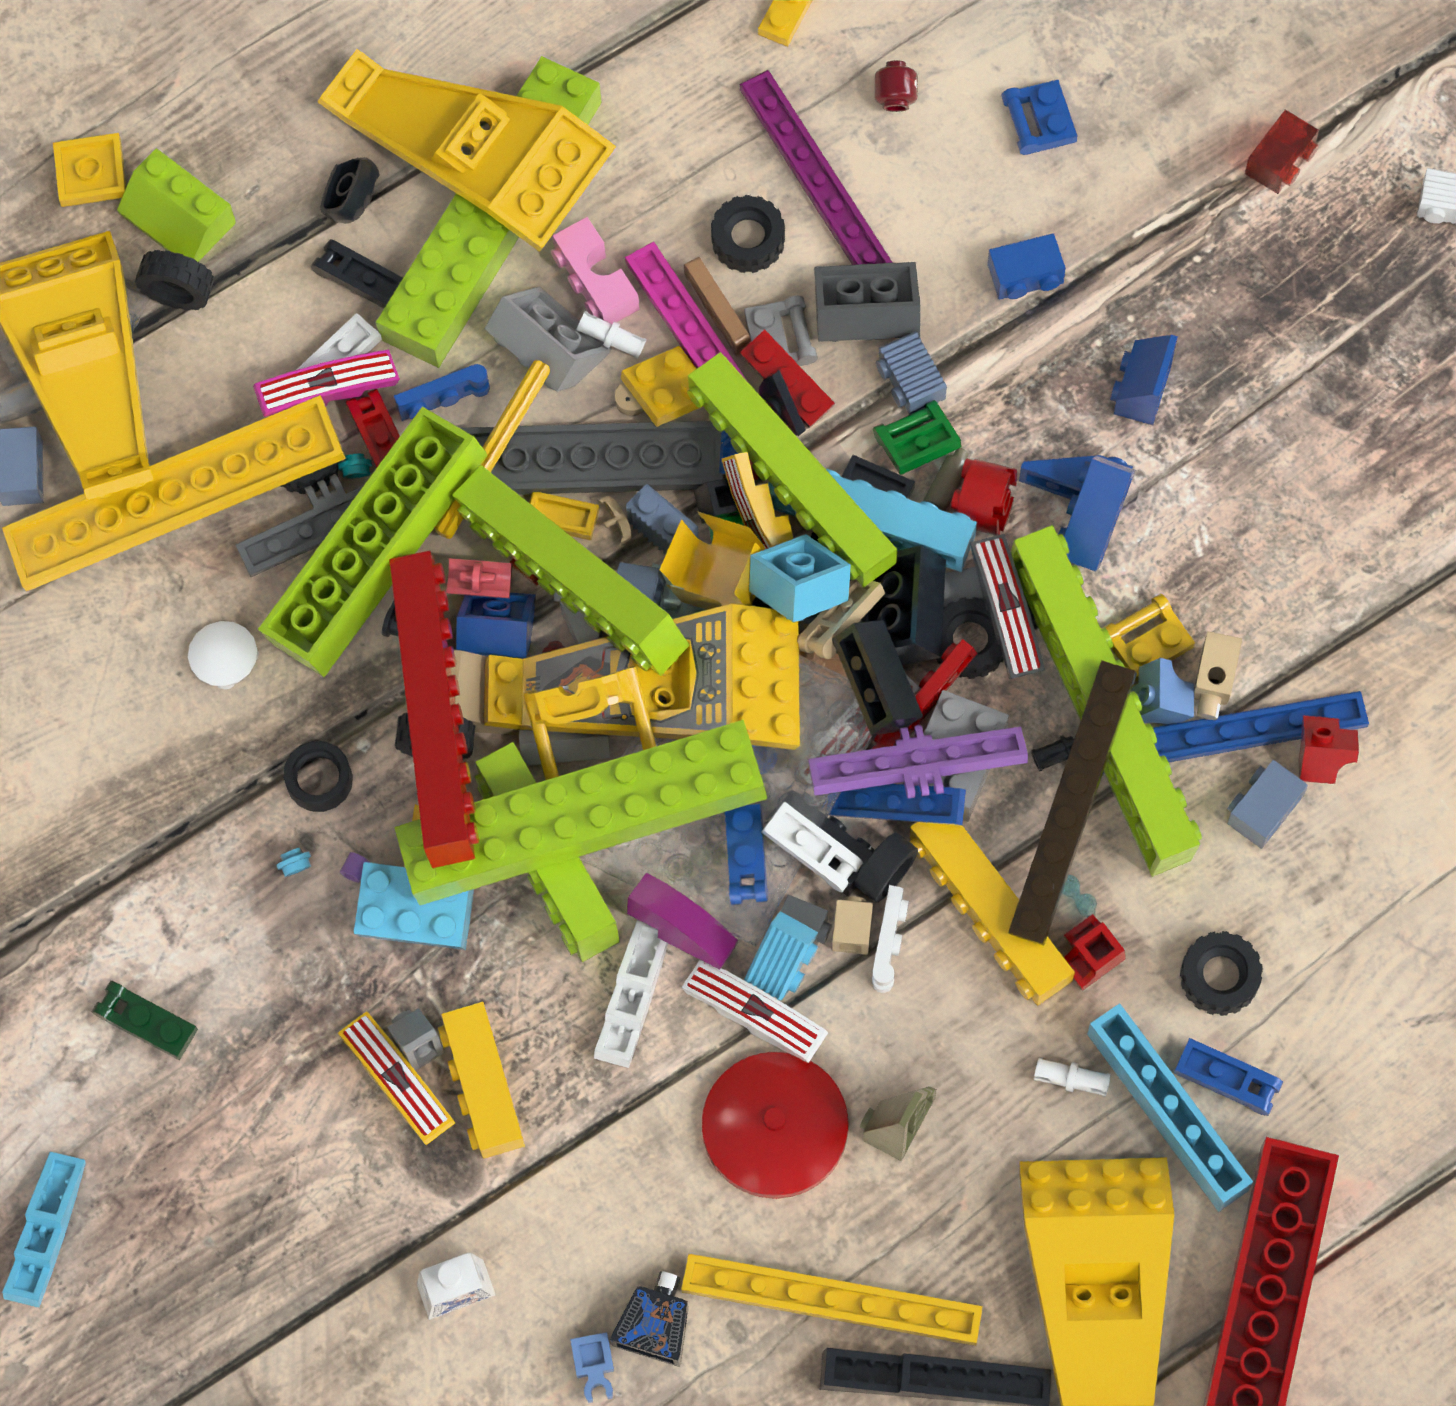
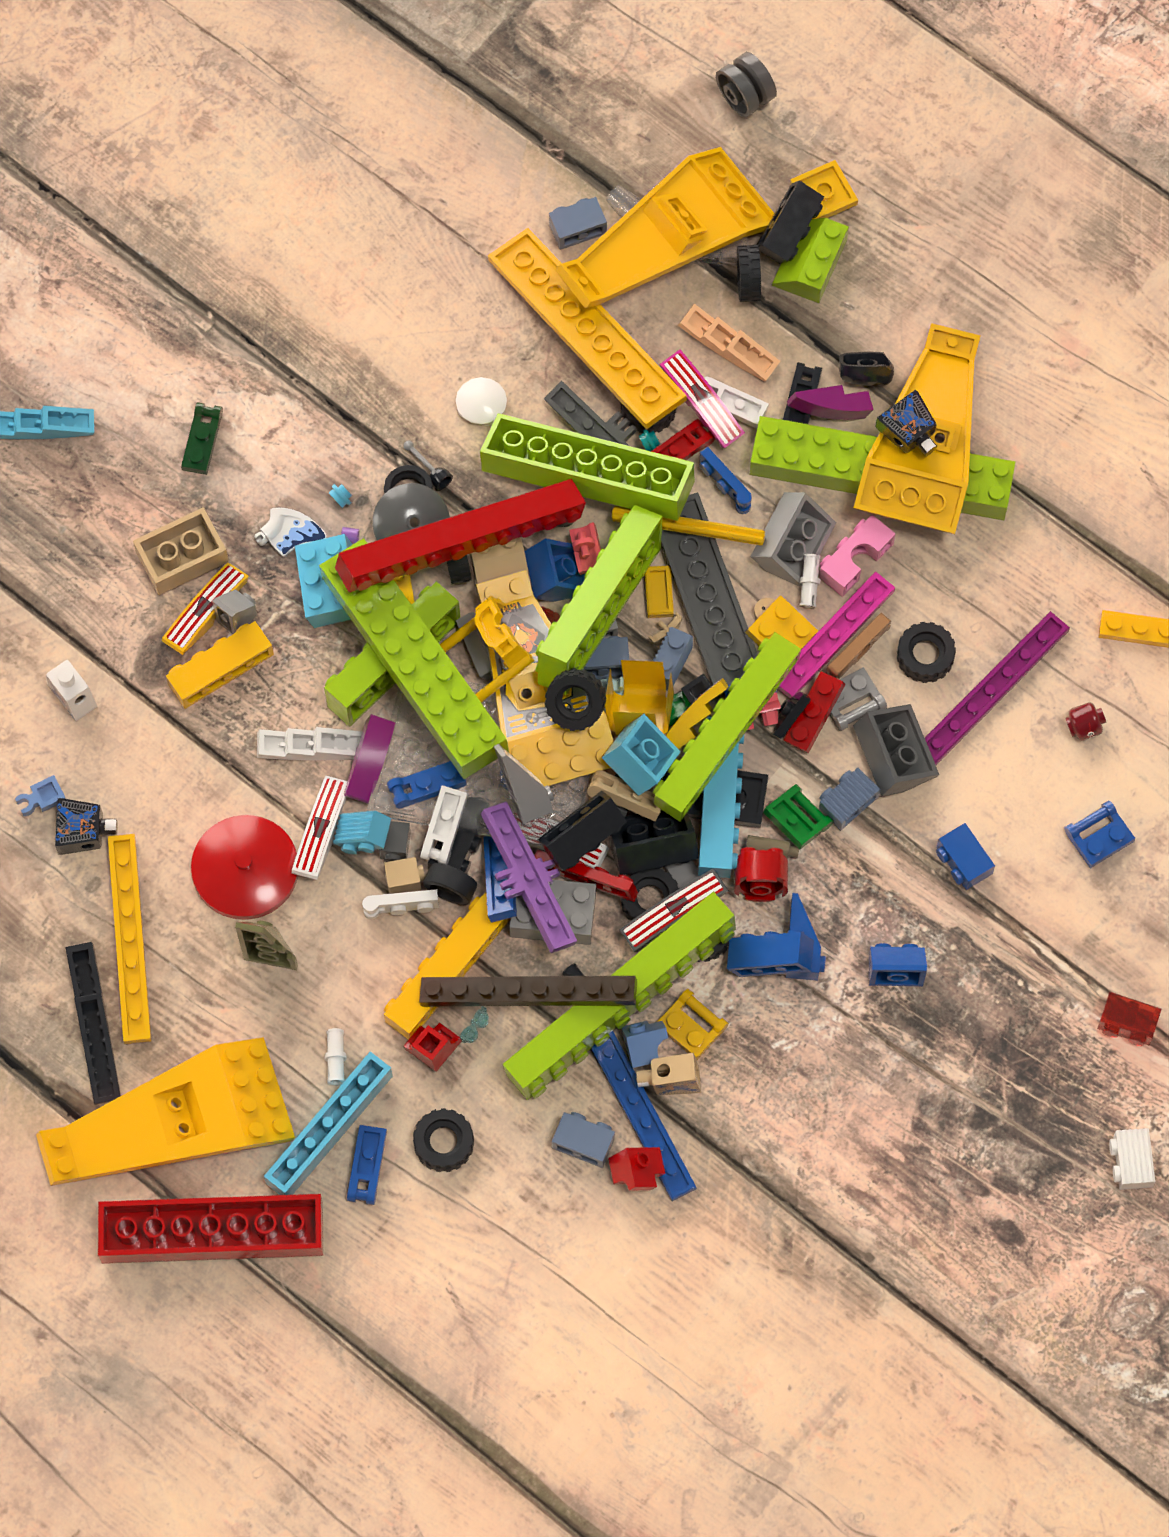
camera: 70 degrees right, 0 degrees up
(122, 211) = (790, 222): none -> black brick
(253, 339) = (728, 343): none -> light nougat slope
(305, 1085) = (181, 551): none -> tan brick
(308, 731) = (439, 476): none -> hinge
(319, 943) = (287, 530): none -> white arm
(358, 796) = (401, 504): none -> dark grey dish
(387, 236) = (832, 403): none -> magenta slope
(465, 143) = (909, 424): none -> torso
(688, 620) = (584, 681): none -> black tyre
(810, 729) = (525, 789): none -> light grey slope

